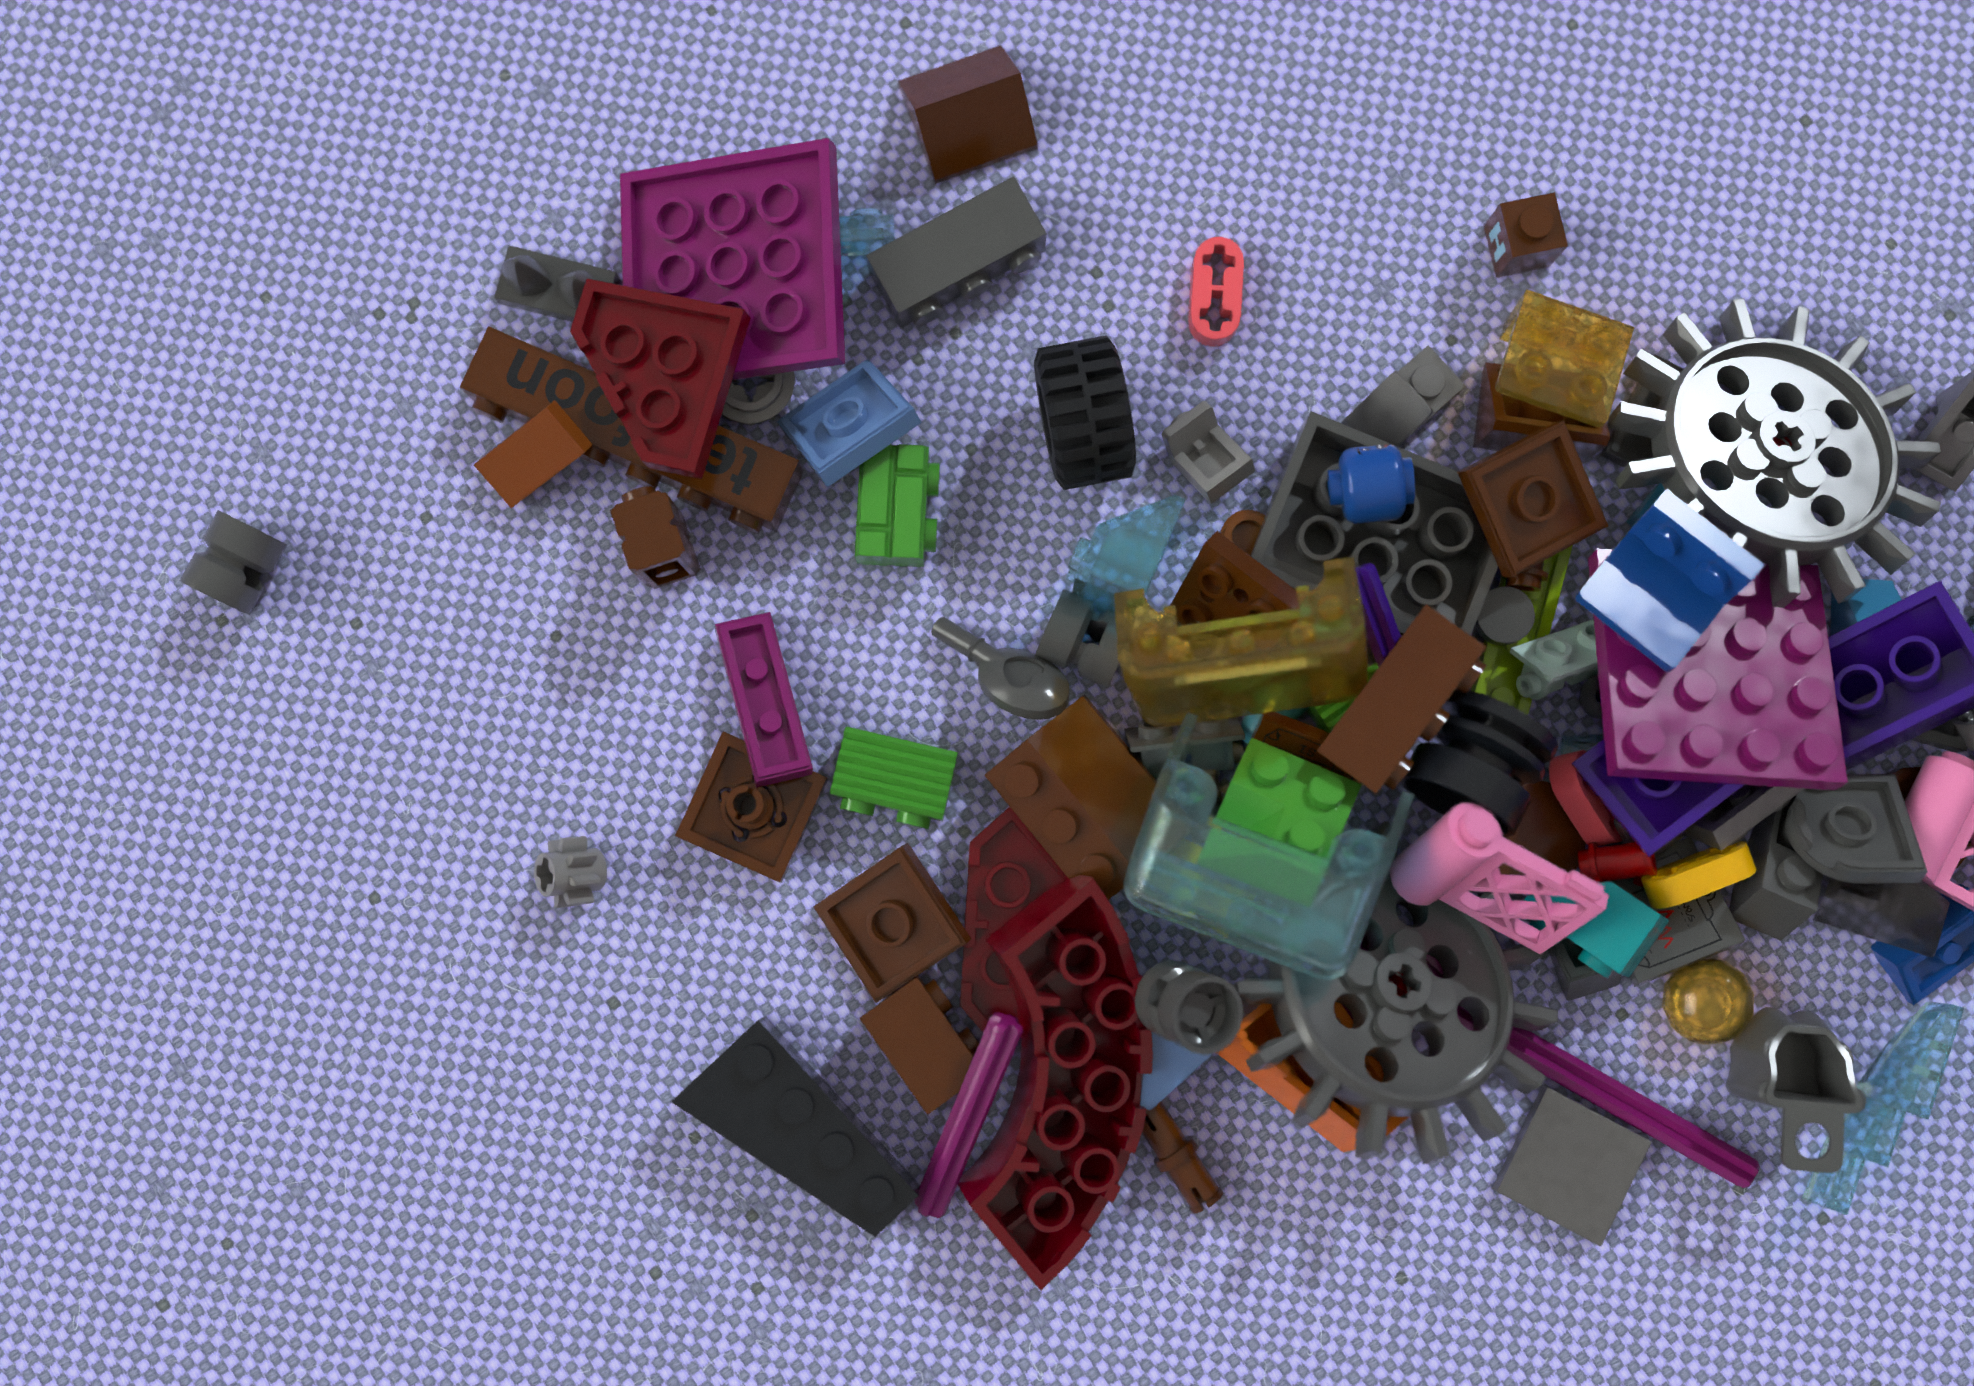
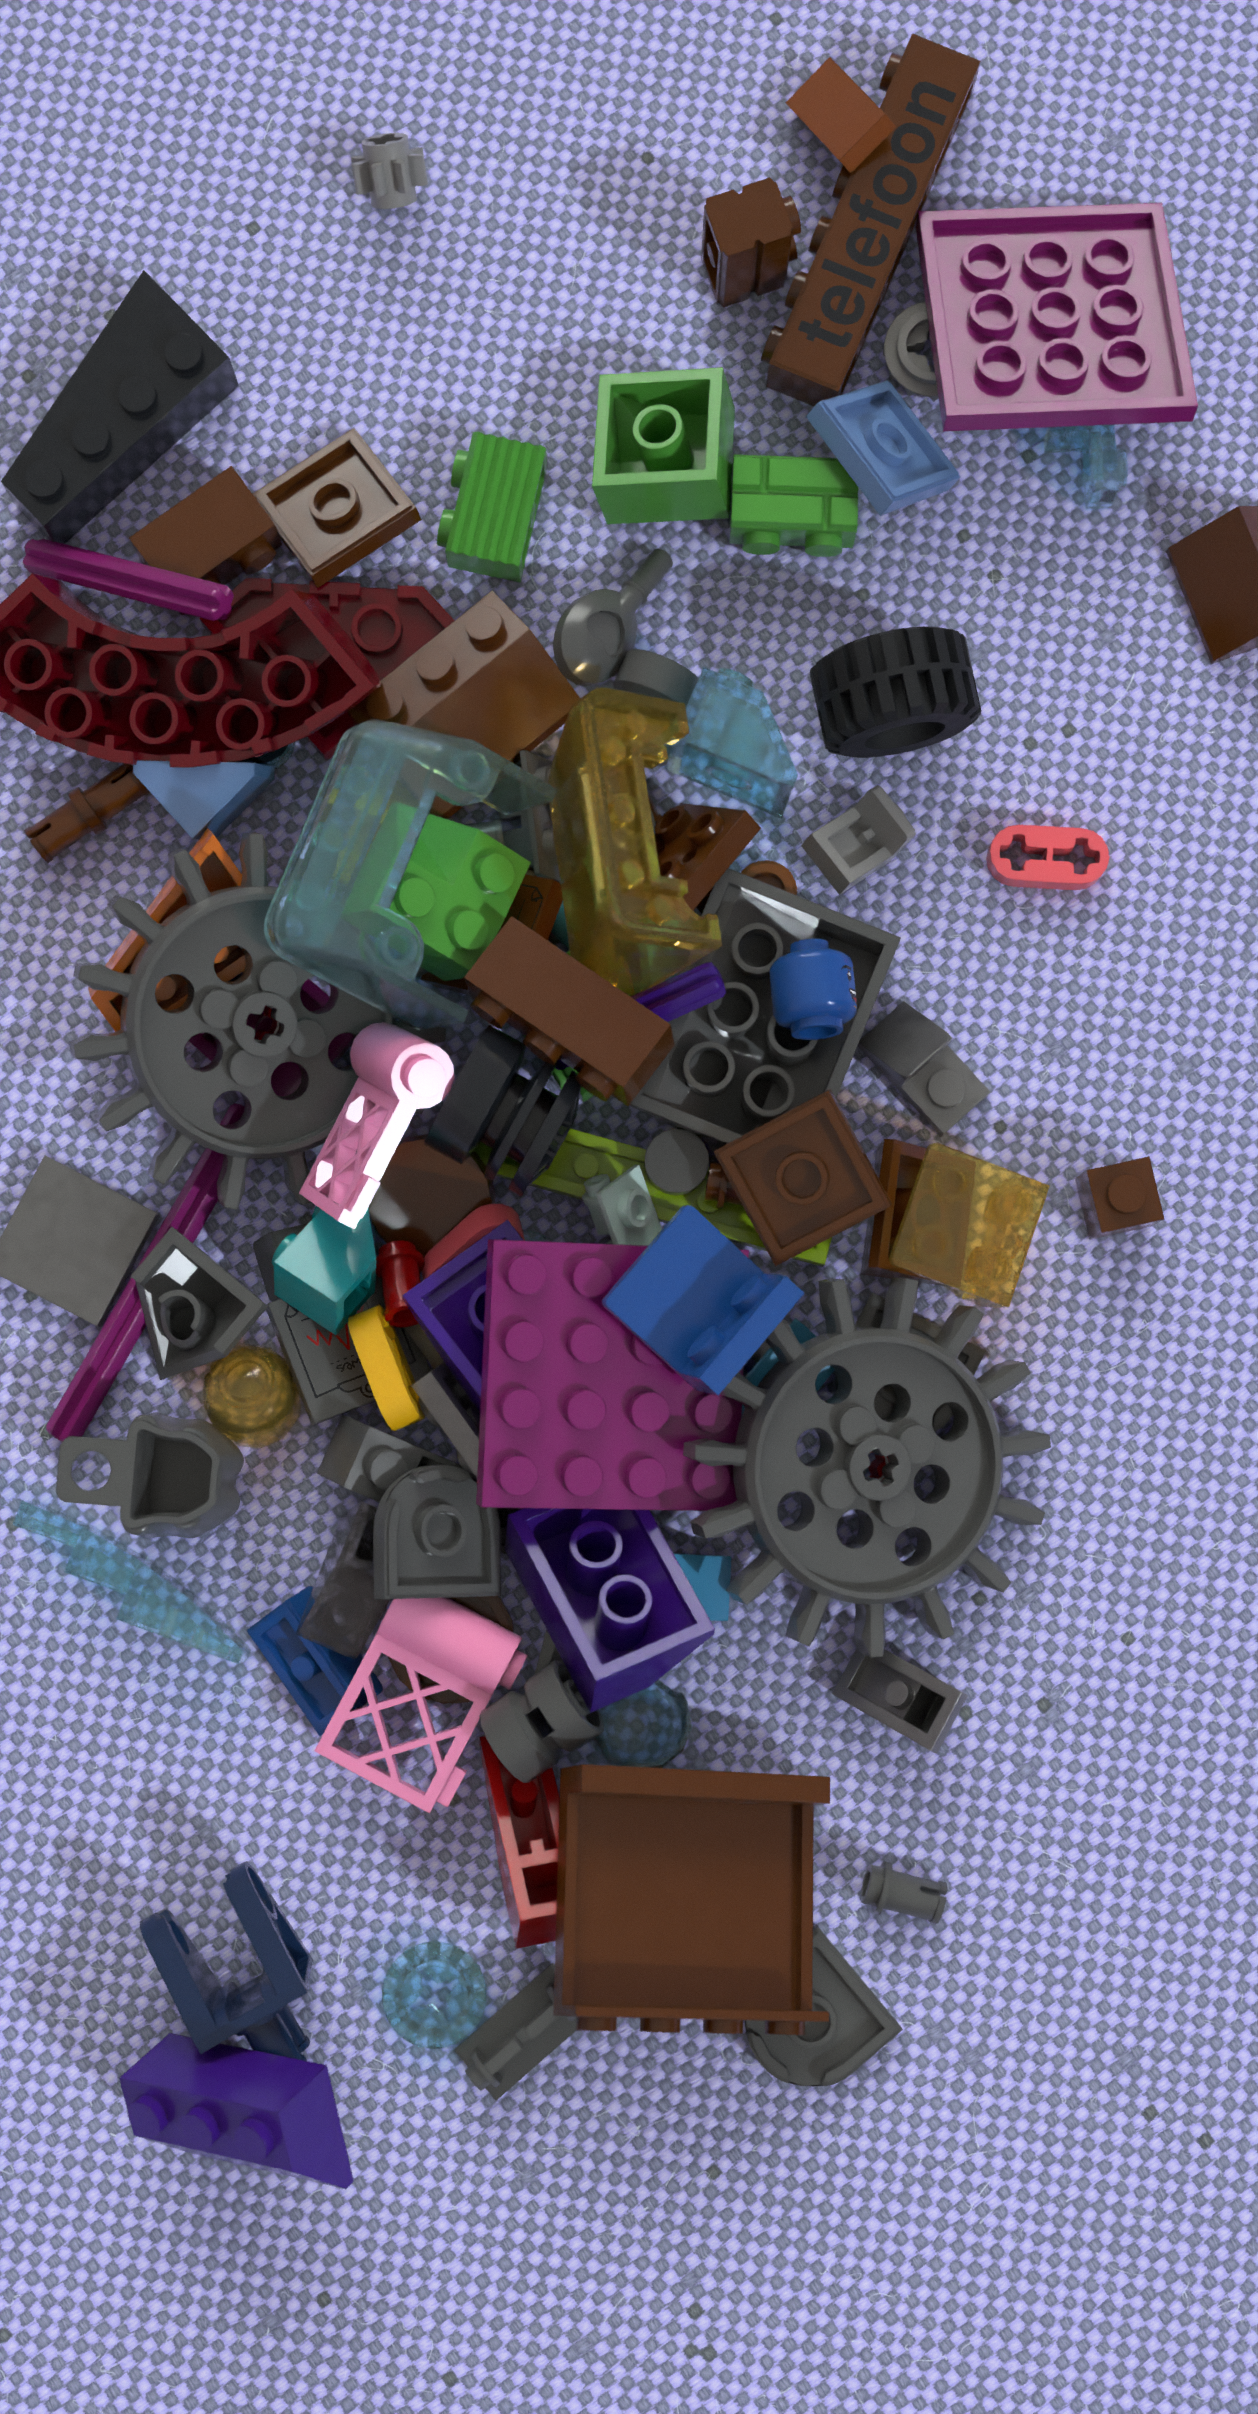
camera: 90 degrees right, 0 degrees up
(545, 283) = (1033, 142): dark grey tile -> none
(661, 367) = (932, 235): dark red plate -> none
(713, 821) = (450, 325): reddish brown plate -> none
(763, 699) = (569, 365): magenta tile -> none
(844, 619) = (664, 446): none -> bright green slope
(958, 254) = (1080, 567): dark grey brick -> none
(1189, 1007) = (236, 789): dark grey wheel -> none
(1637, 1048) = (191, 1305): none -> dark grey slope

